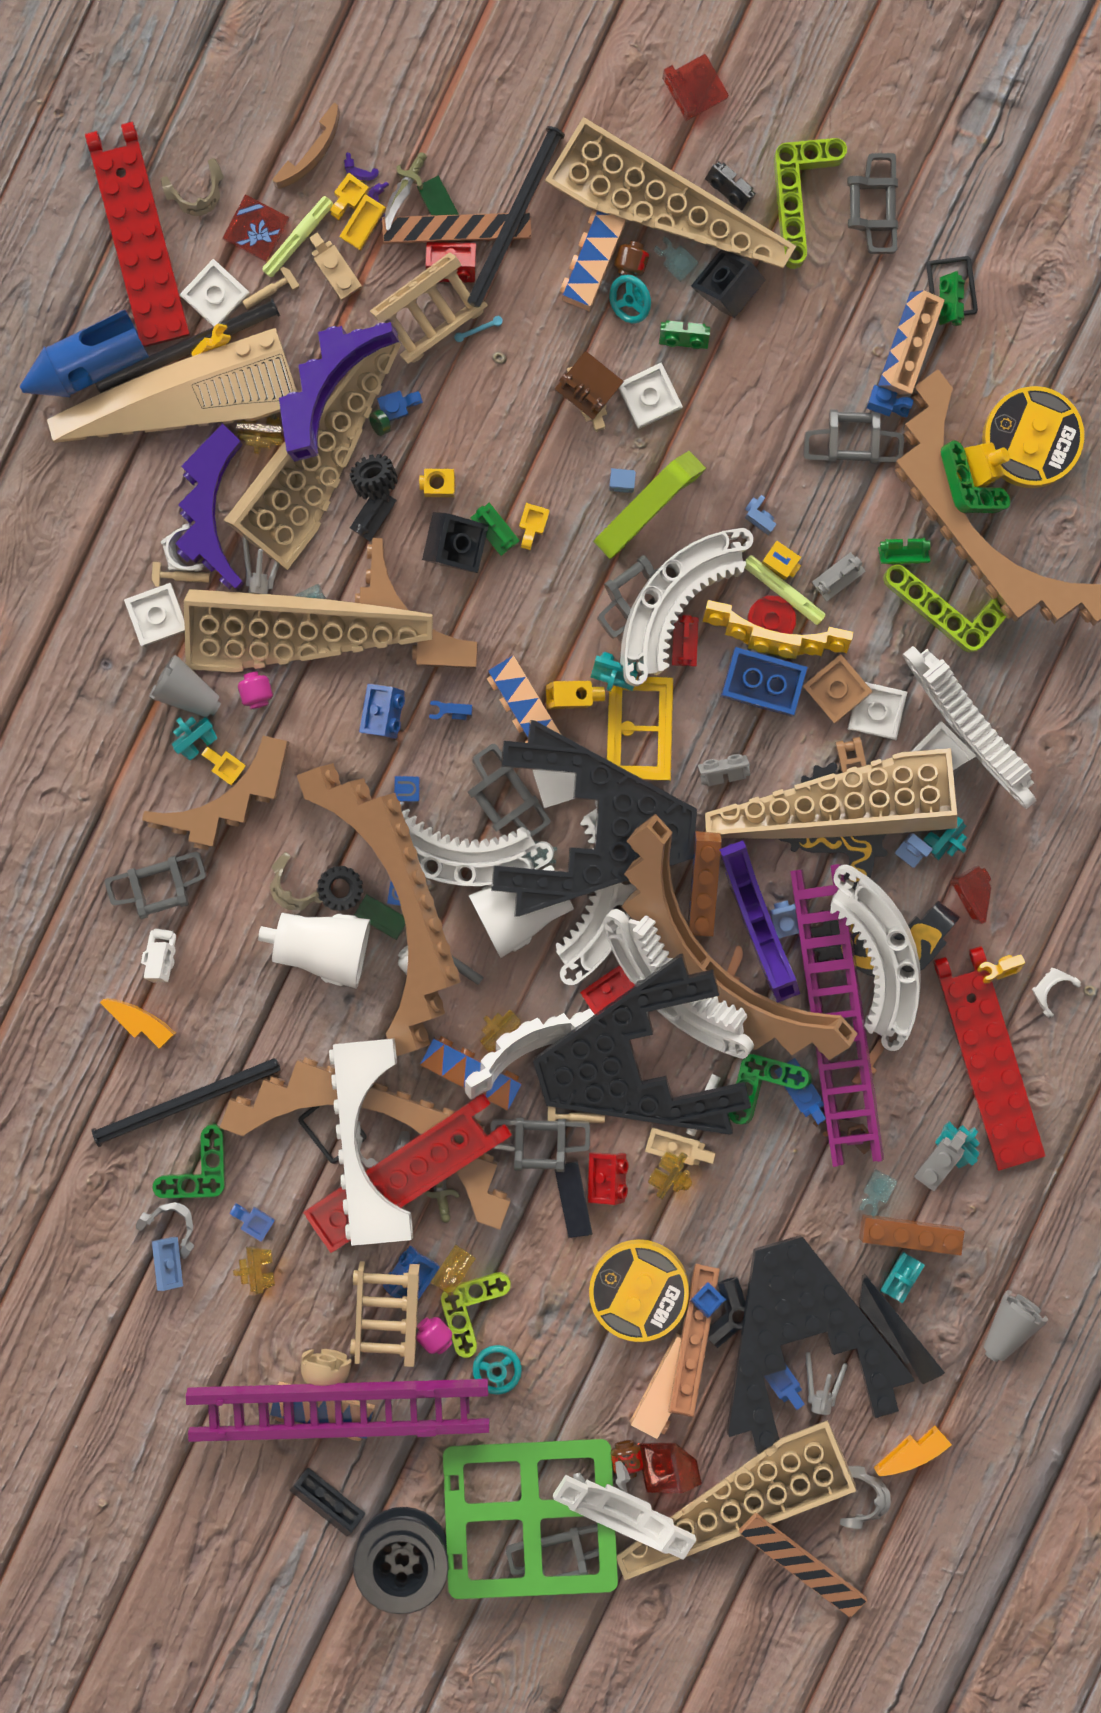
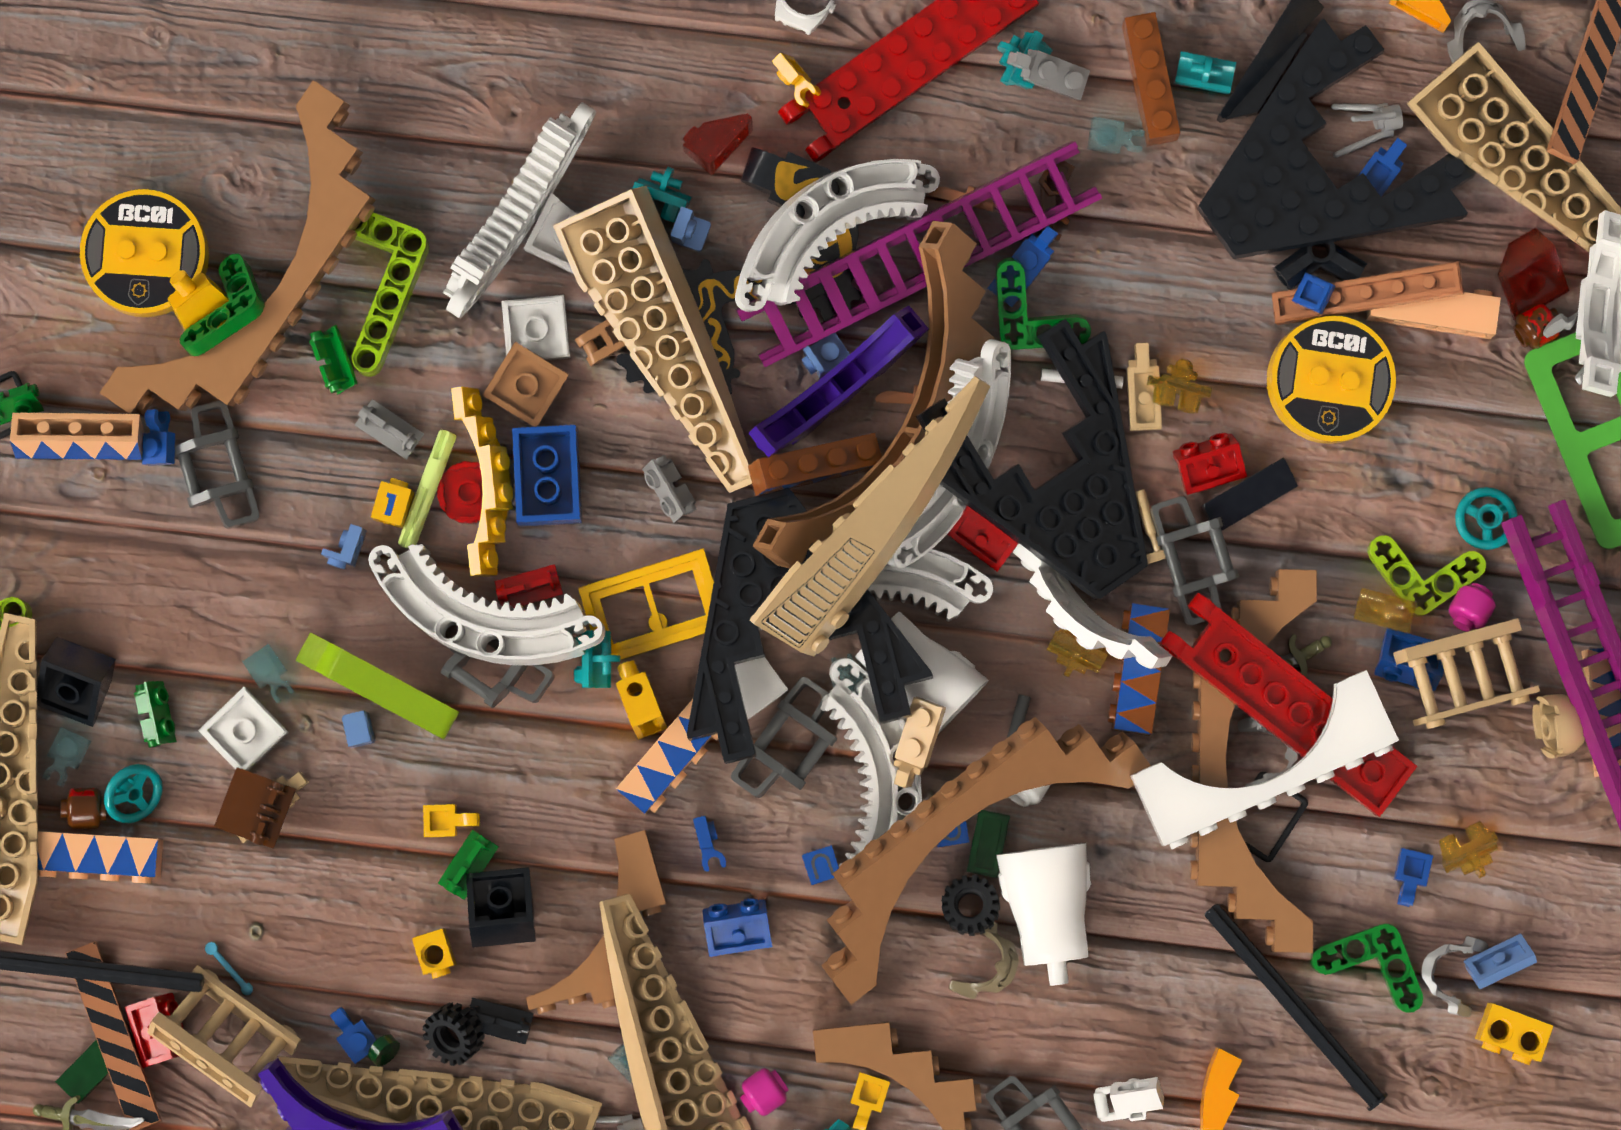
camera: 105 degrees left, 5 degrees down
(115, 1257) = (1515, 1026): none -> yellow brick
(472, 889) = (917, 740): none -> tan hinge
(616, 874) = (821, 592): none -> tan wedge
(690, 428) = (266, 669): none -> clear light blue plate

